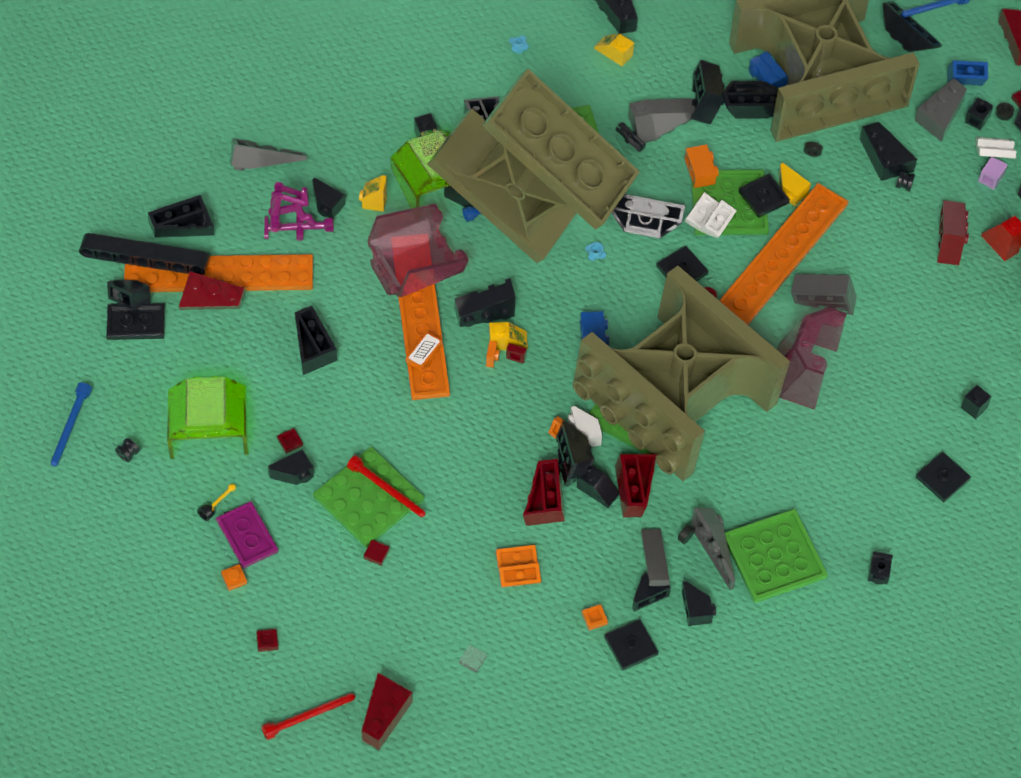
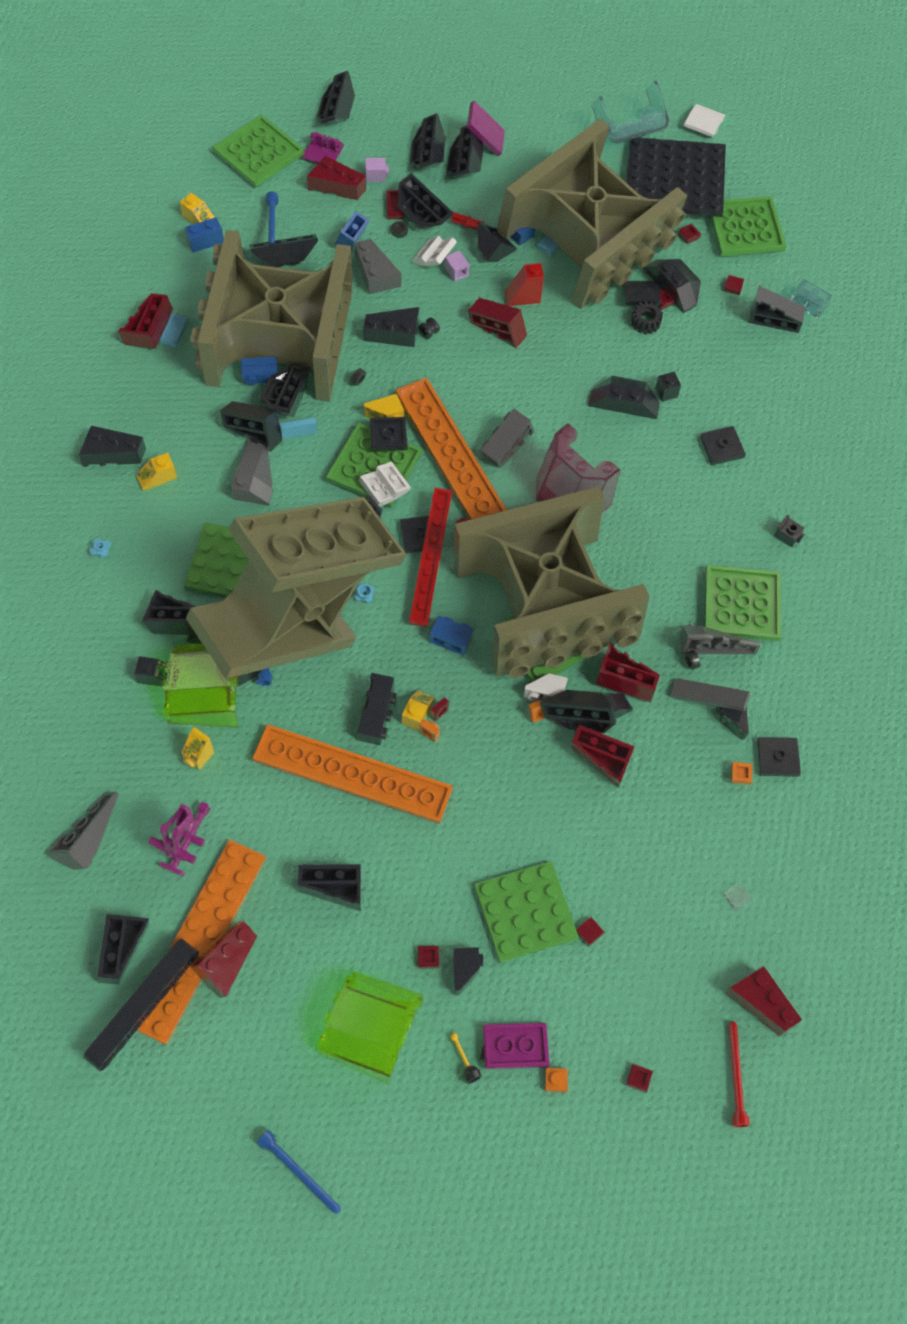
camera: 65 degrees left, 5 degrees up
(127, 450) = (362, 1124): black wheel -> none
(129, 293) = (177, 1040): black slope -> none
(141, 323) = (209, 1049): black tile -> none
(327, 199) = (172, 796): black slope -> none
(356, 465) = (495, 905): red piece -> none
(412, 251) = (295, 746): clear pink windscreen -> none
(424, 351) = (399, 787): tile -> none
(518, 566) = (660, 813): orange slope -> none
(630, 137) = (261, 506): black axle -> none
(655, 283) = (430, 557): none -> red plate
(697, 605) = (766, 685): black slope -> none
(700, 166) = (331, 465): orange brick -> none
(730, 130) = (298, 428): none -> medium azure tile
(942, 373) = (625, 397): none -> black wedge
(979, 113) = (394, 246): black brick -> none

